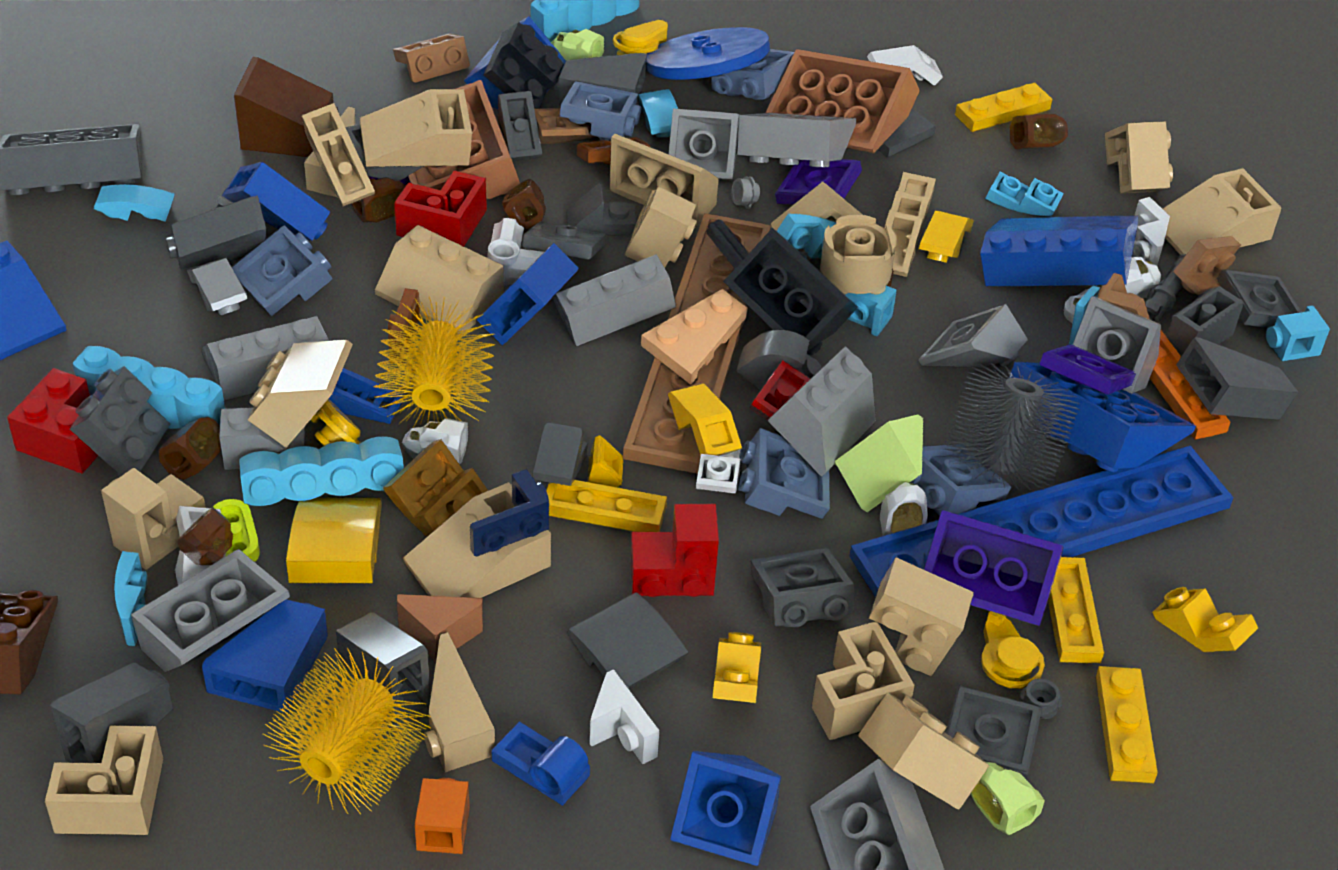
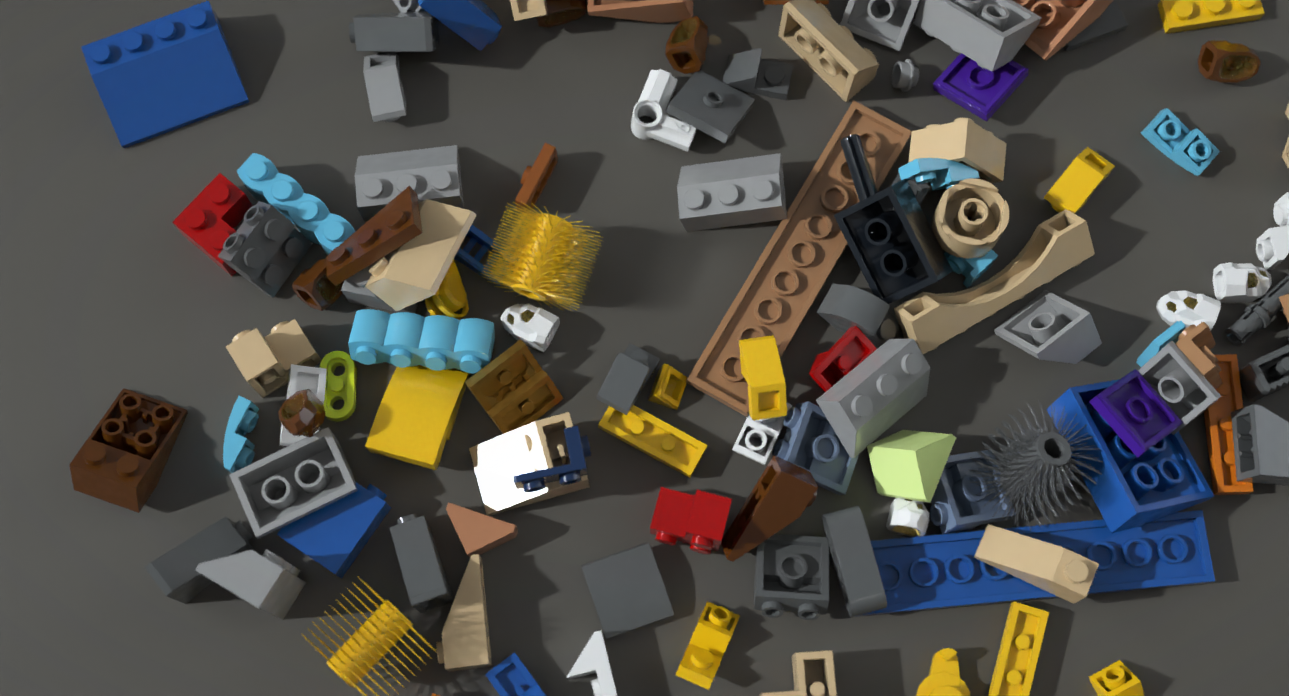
camera: 20 degrees right, 30 degrees up
(110, 794) = (194, 636): tan brick -> none
(189, 696) = (258, 579): none -> light grey slope
(247, 377) = (377, 237): none -> reddish brown wing
(282, 270) = (445, 84): sand blue plate -> none
(439, 271) = (584, 129): tan slope -> none
(447, 212) = (608, 51): red brick -> none
(528, 294) = (656, 175): blue slope -> none
(661, 227) = (803, 117): tan brick -> none
(694, 334) = (791, 261): light nougat wing -> none
(760, 512) = (772, 505): none -> reddish brown slope
(858, 543) = (854, 561): none -> dark grey beam
(908, 218) = (1045, 155): tan slope -> none
(924, 610) = (872, 654): tan brick -> none
(943, 282) = (1052, 249): none -> tan arch
(1001, 566) = (958, 613): dark purple slope -> none
(1058, 250) = (1181, 235): blue slope -> none
(1058, 510) = (1038, 563): none -> tan slope

